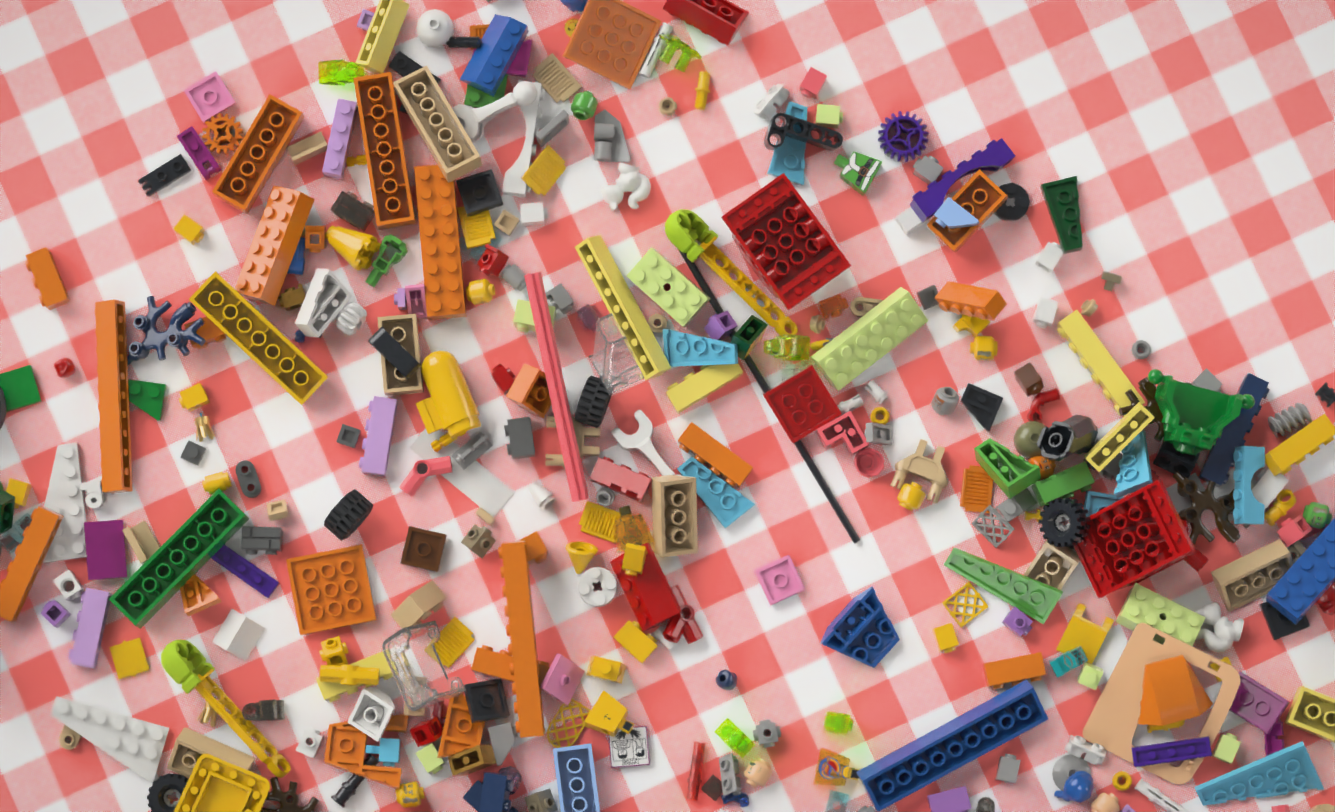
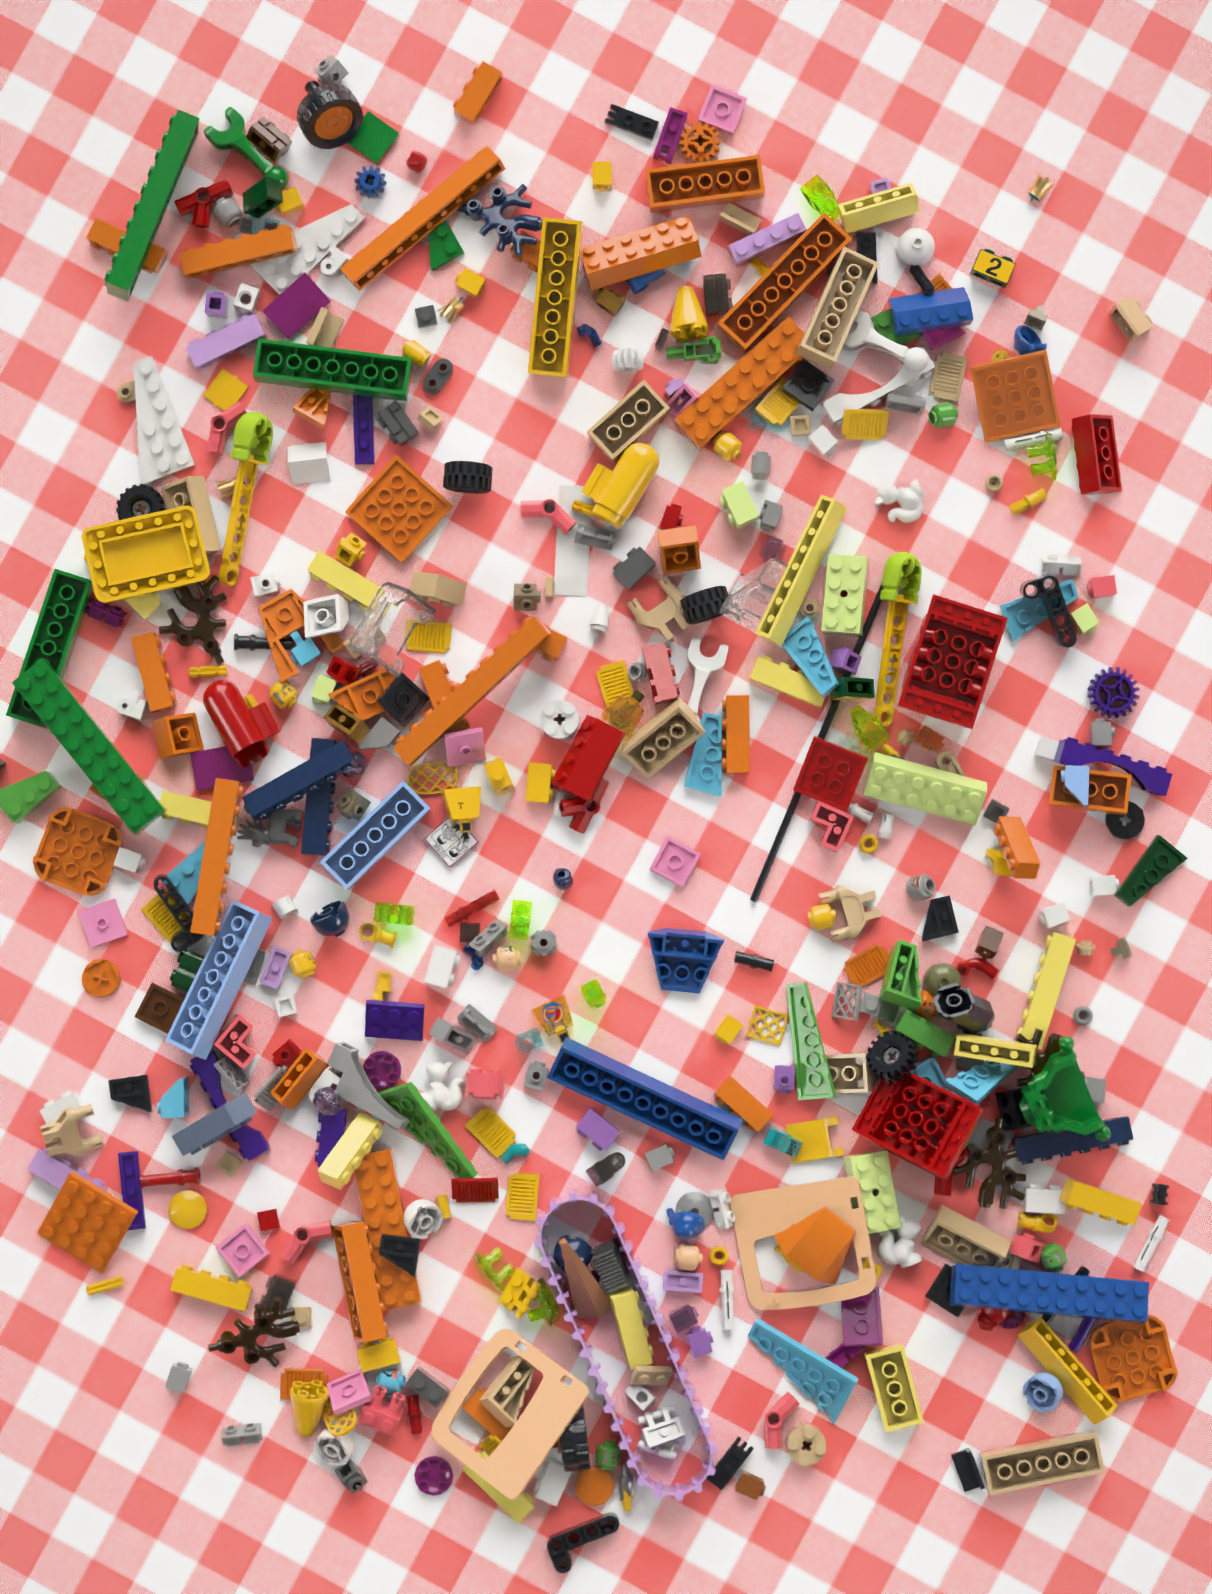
camera: 55 degrees right, 5 degrees up
(46, 422) = (377, 179): none -> blue gear
(161, 692) = (217, 437): none -> coral piece
(264, 710) = (263, 529): clear smoke piece -> none
(315, 238) = (671, 281): orange window -> none
(322, 303) = (621, 326): white wedge -> none
(348, 436) = (532, 429): dark grey plate -> none
(349, 675) = (340, 574): yellow piece -> none
(355, 280) = (661, 339): none -> clear smoke tile
(379, 436) = (550, 454): lavender brick -> none
(394, 352) = (624, 414): black beam -> none
(423, 549) = (486, 558): reddish brown plate -> none
(492, 261) = (759, 437): red brick -> none
(556, 386) = (695, 565): coral axle -> none
(581, 554) = (576, 686): yellow hat -> none
(609, 139) = (931, 456): light grey panel -> none
(634, 559) = (601, 732): yellow slope -> none
(858, 170) = (1057, 677): torso -> none
(869, 462) = (824, 863): coral hair -> none
(878, 433) = (852, 853): light grey plate -> none
(906, 576) = (754, 961): none -> black pin
(984, 348) = (987, 887): yellow head -> none
(1090, 675) = (784, 1168): yellowish green brick -> none
(1171, 751) = (771, 1278): dark purple tile -> none
(1226, 748) = (808, 1320): yellowish green brick -> none
(1246, 507) = (1053, 1169): medium azure arch -> none
(1289, 418) = (1115, 1177): light grey piece -> none

